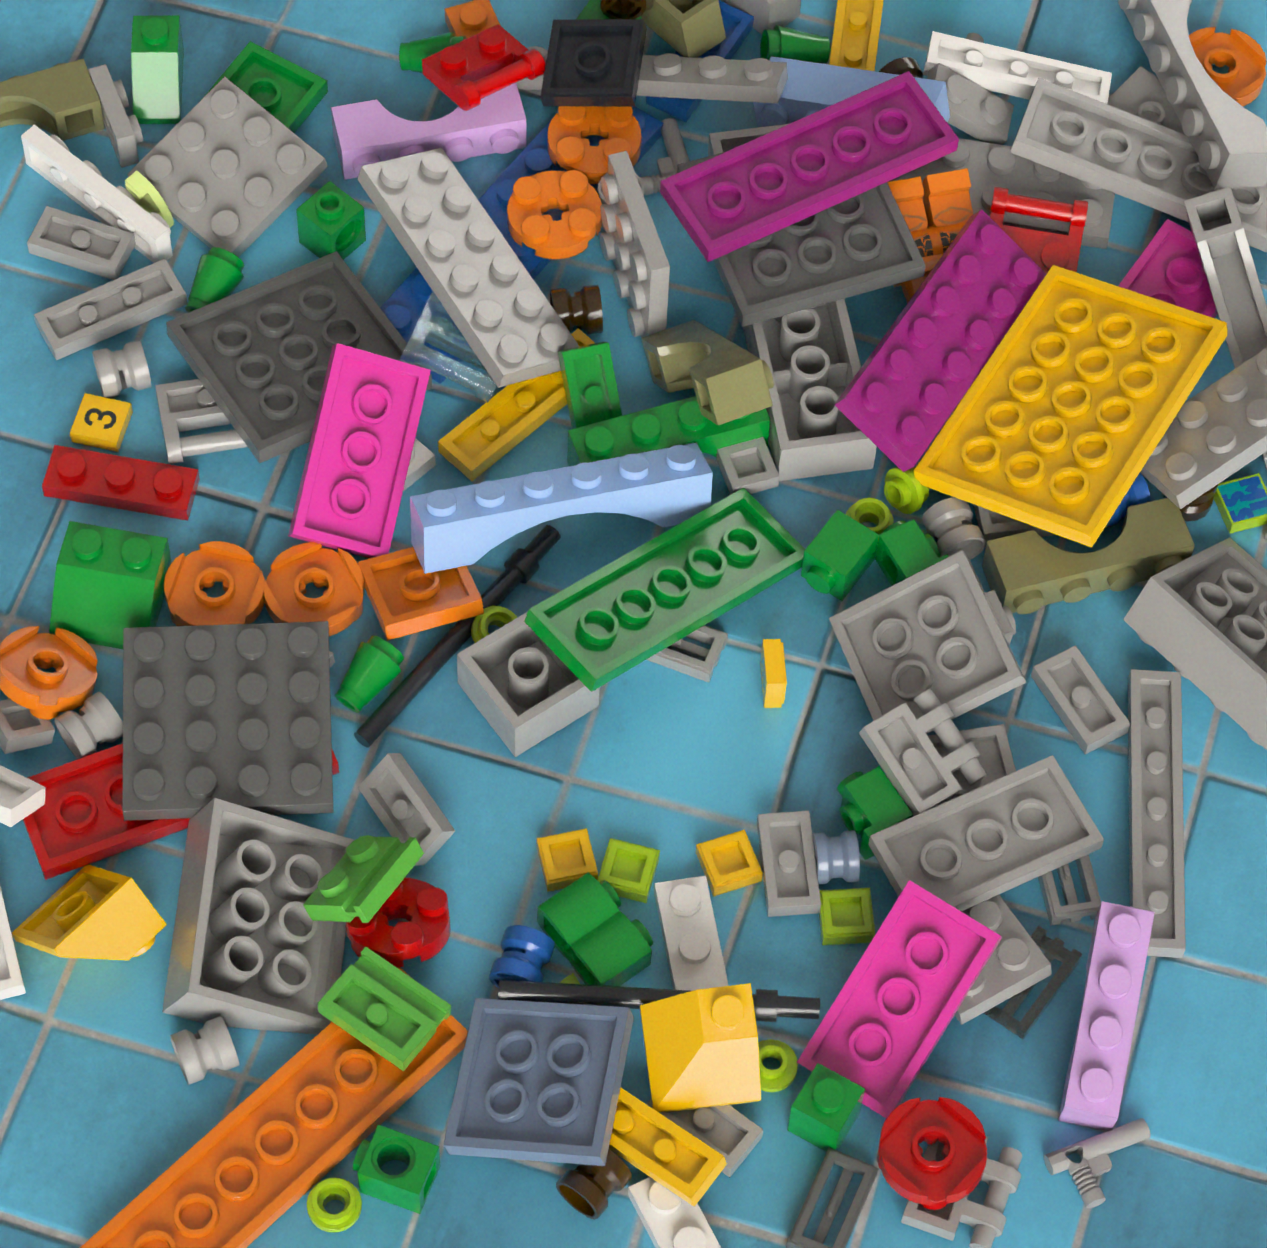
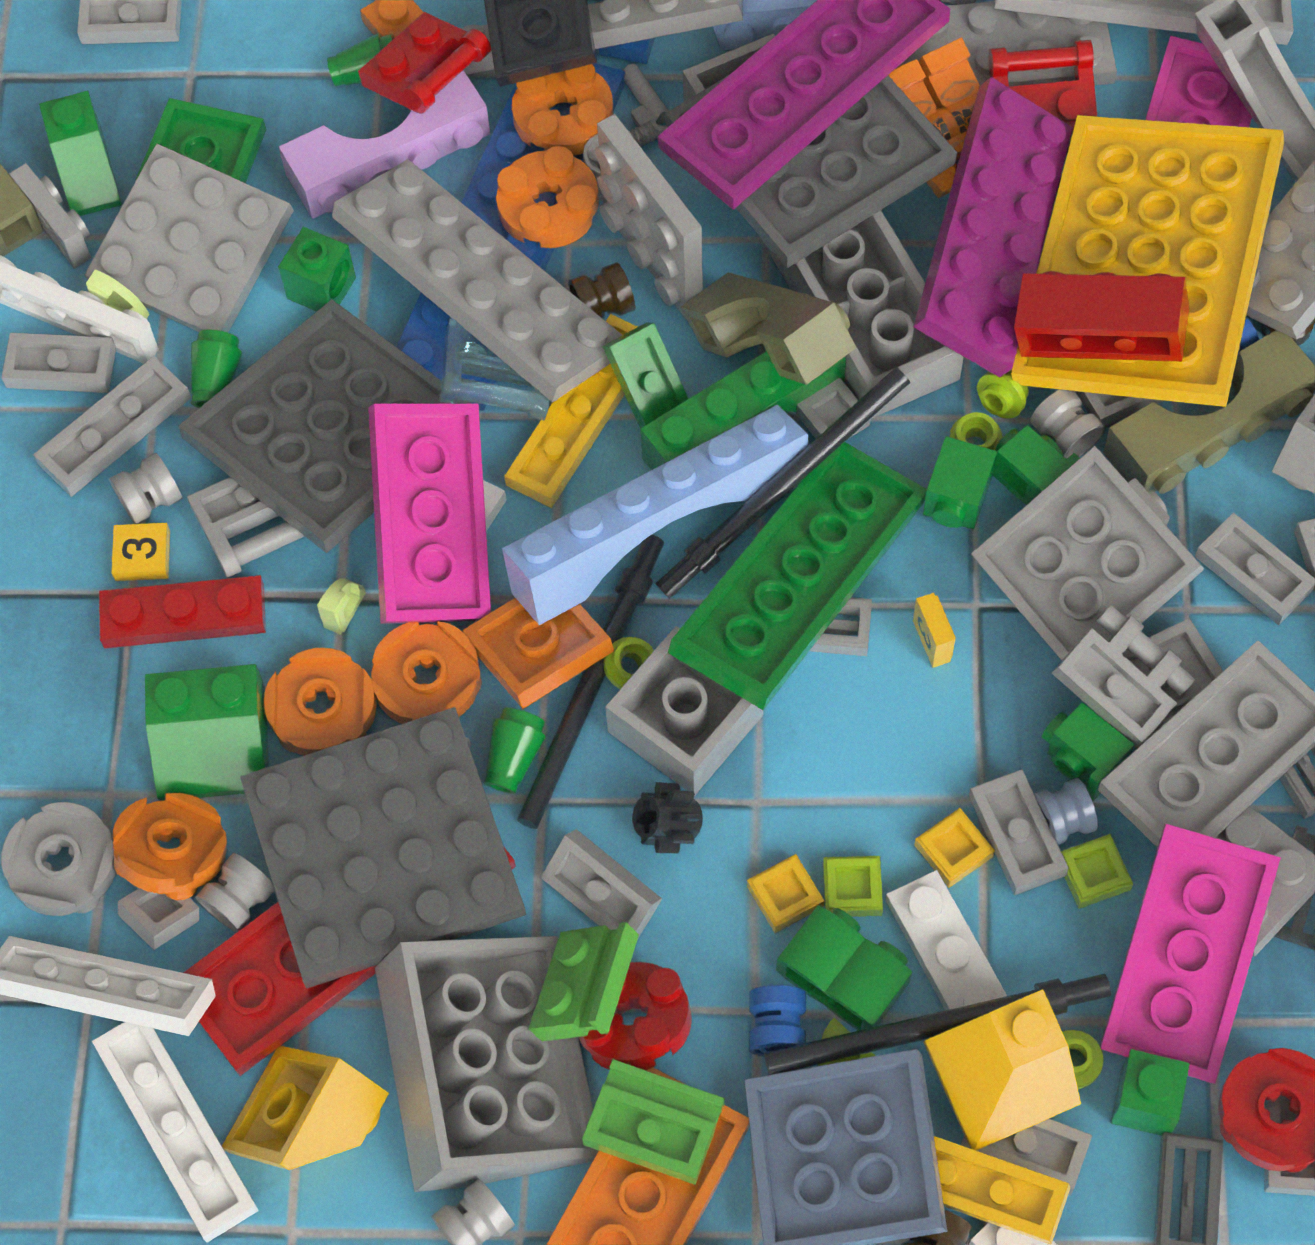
camera: 10 degrees left, 5 degrees up
(258, 512) = (340, 604): none -> yellowish green tile
(483, 766) = (667, 818): none -> black gear
(591, 554) = (703, 554): none -> black bar
(1005, 440) = (1102, 316): none -> red brick

